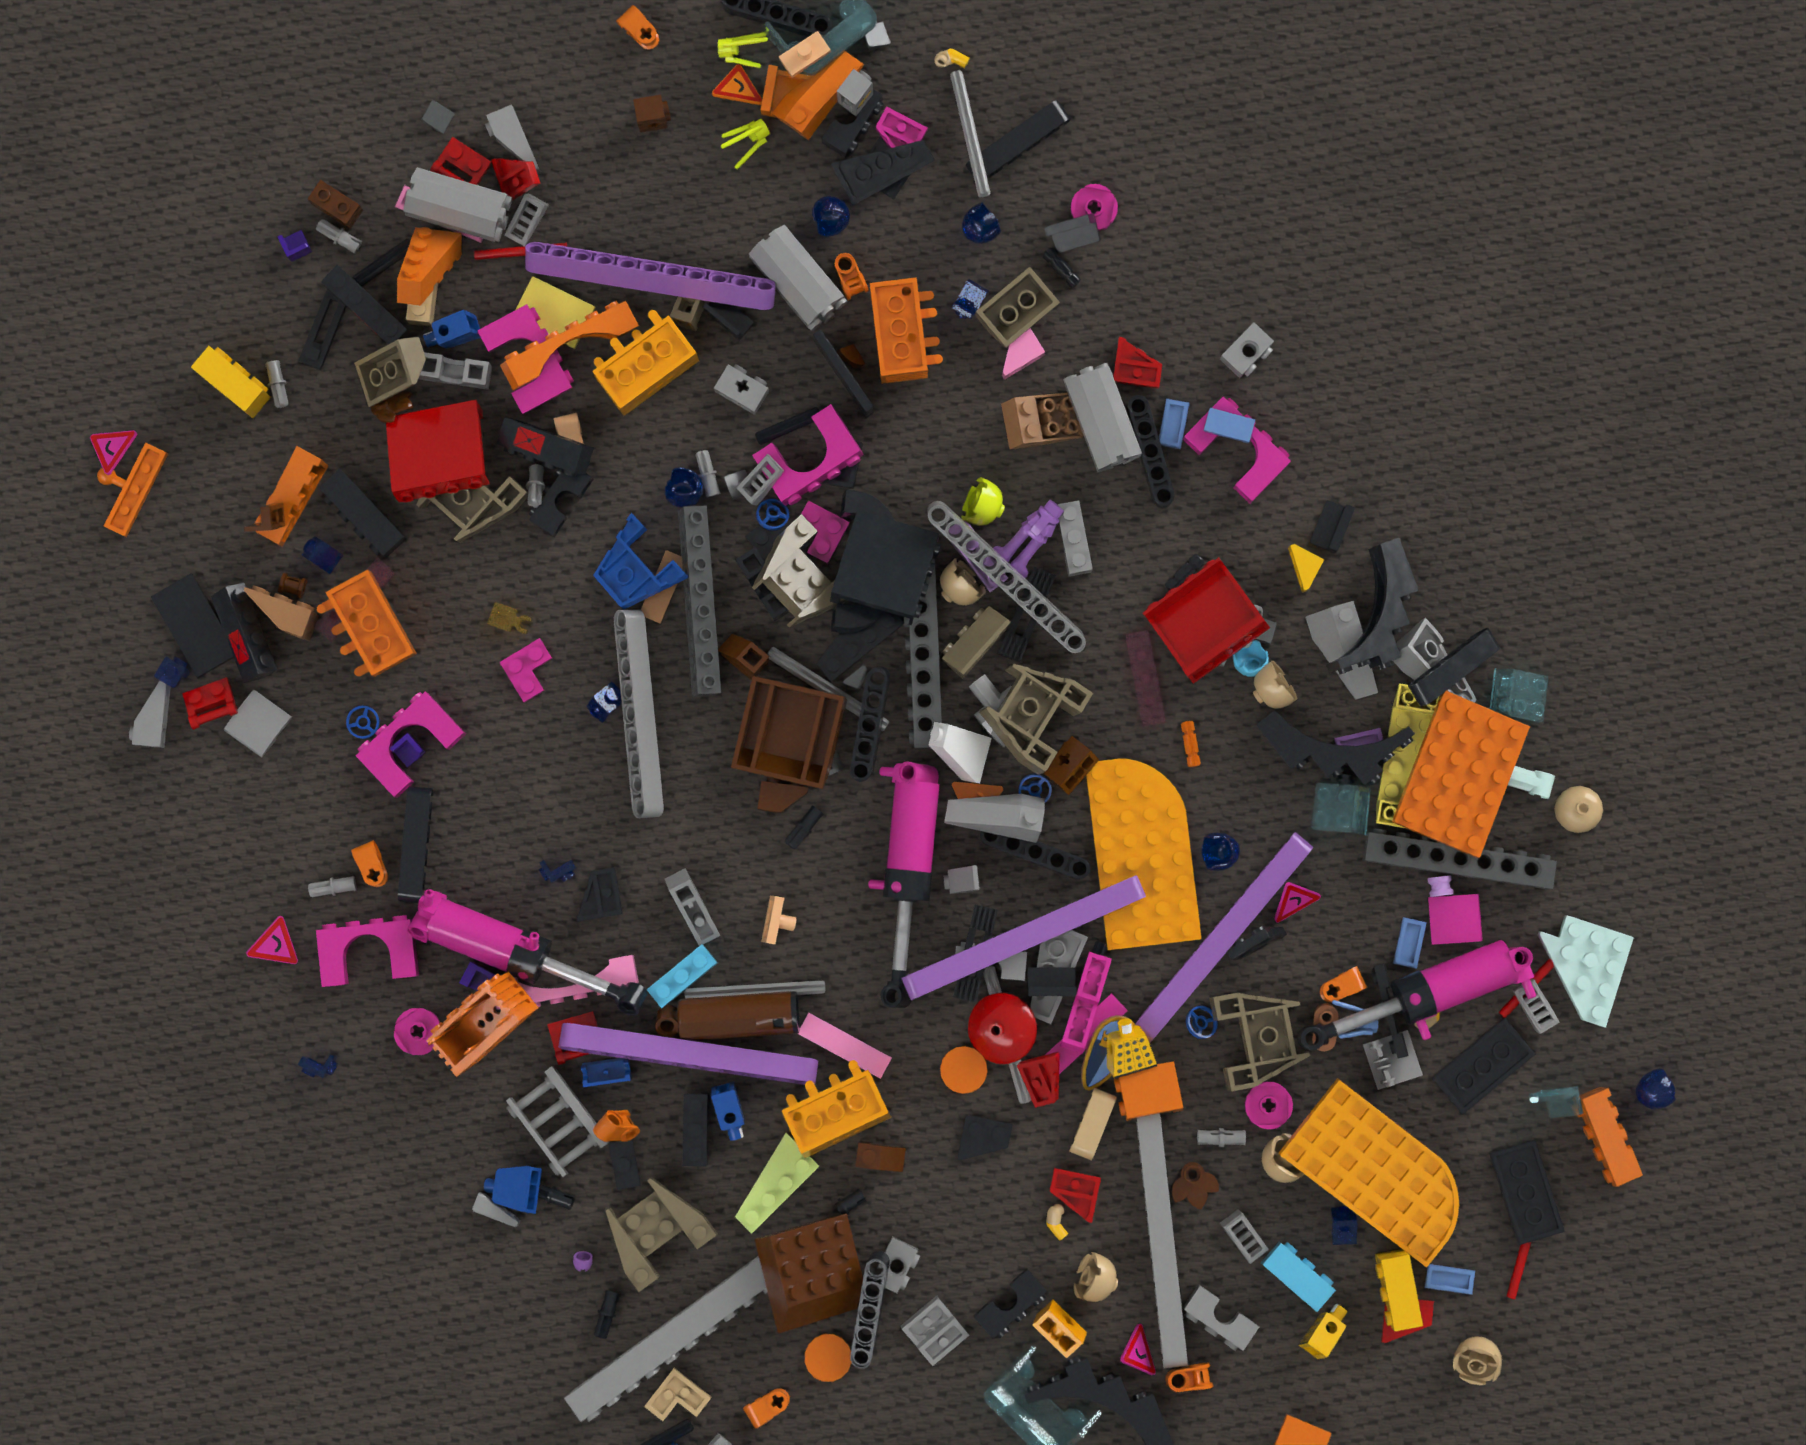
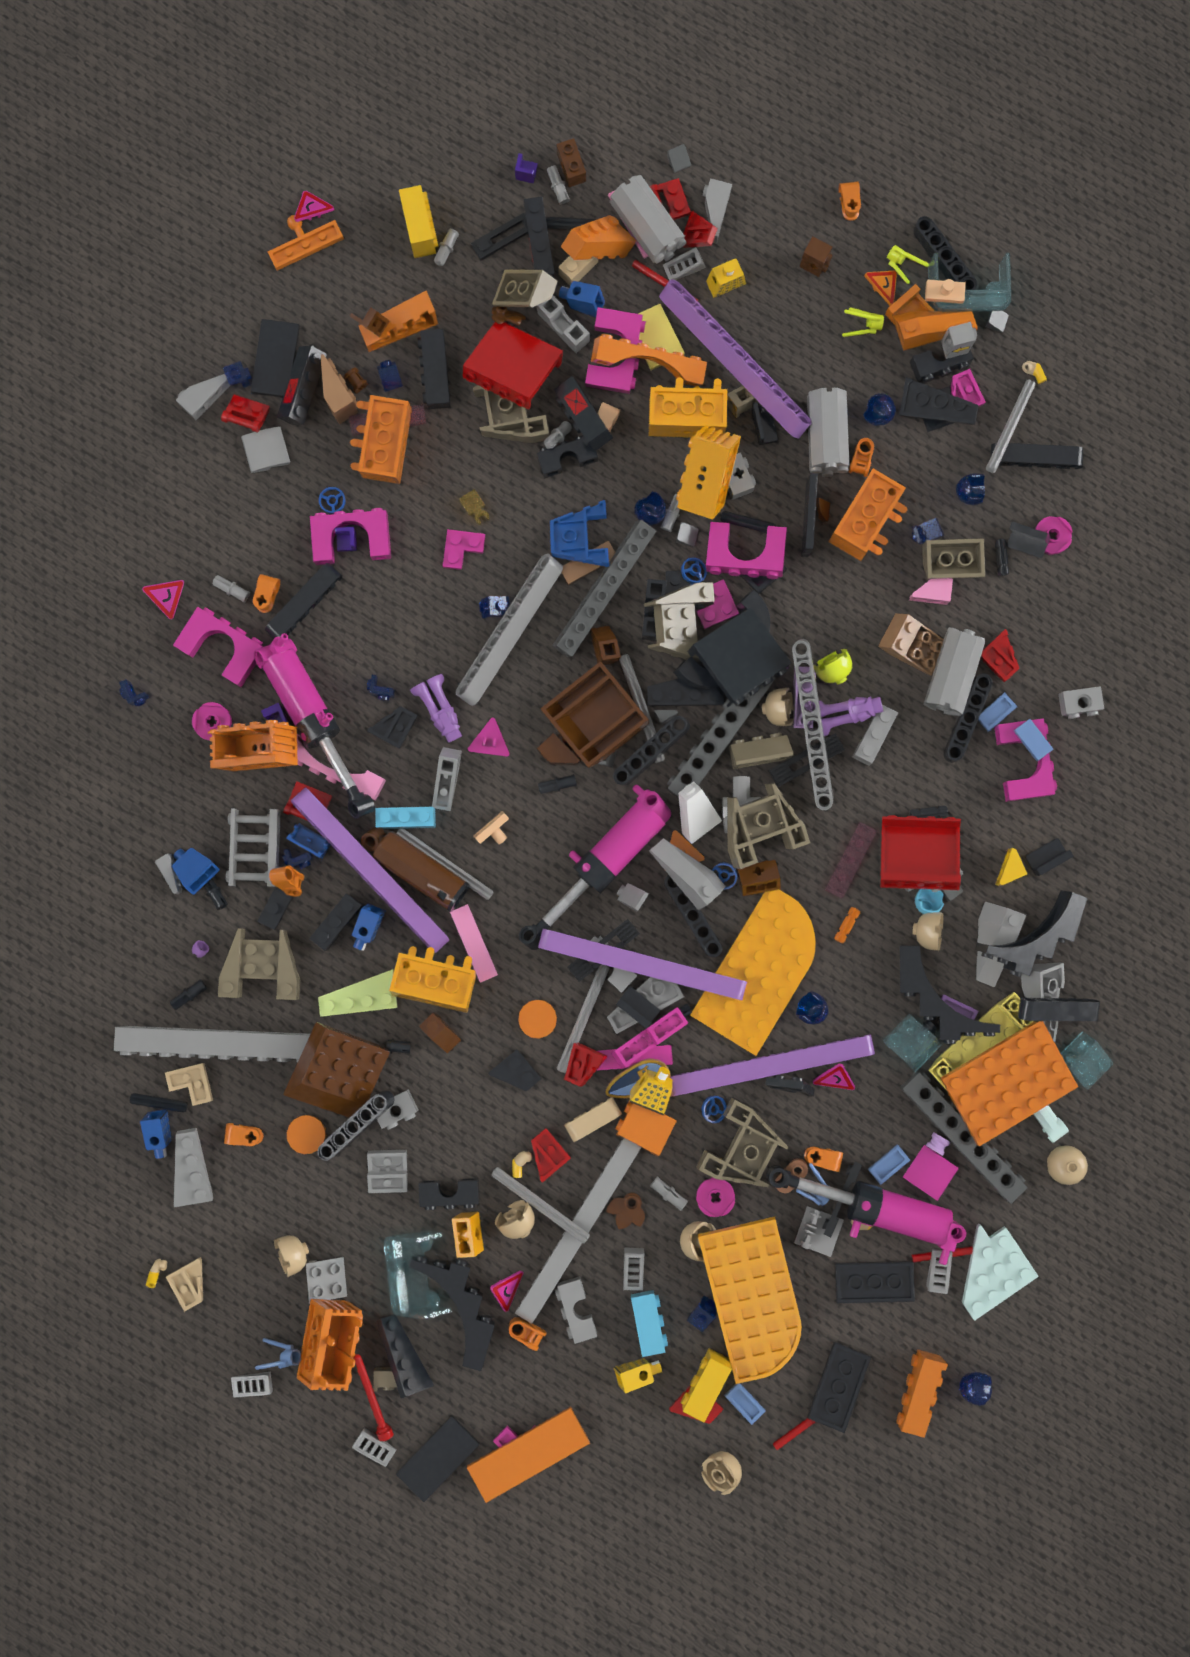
camera: 35 degrees right, 0 degrees up
(578, 202) = (727, 277): none -> yellow torso
(614, 1098) = (301, 861): none -> clear blue bracket
(644, 850) = (444, 719): none -> medium lavender piece
(704, 836) = (489, 741): none -> dark pink piece
(709, 388) = (718, 455): none -> light orange piece
(744, 486) = (697, 536): light grey slope -> none
(1015, 1023) = (593, 1016): red dish -> none
(1107, 1245) = (540, 1205): none -> light grey axle
(1559, 1101) = (907, 1346): clear light blue panel -> none

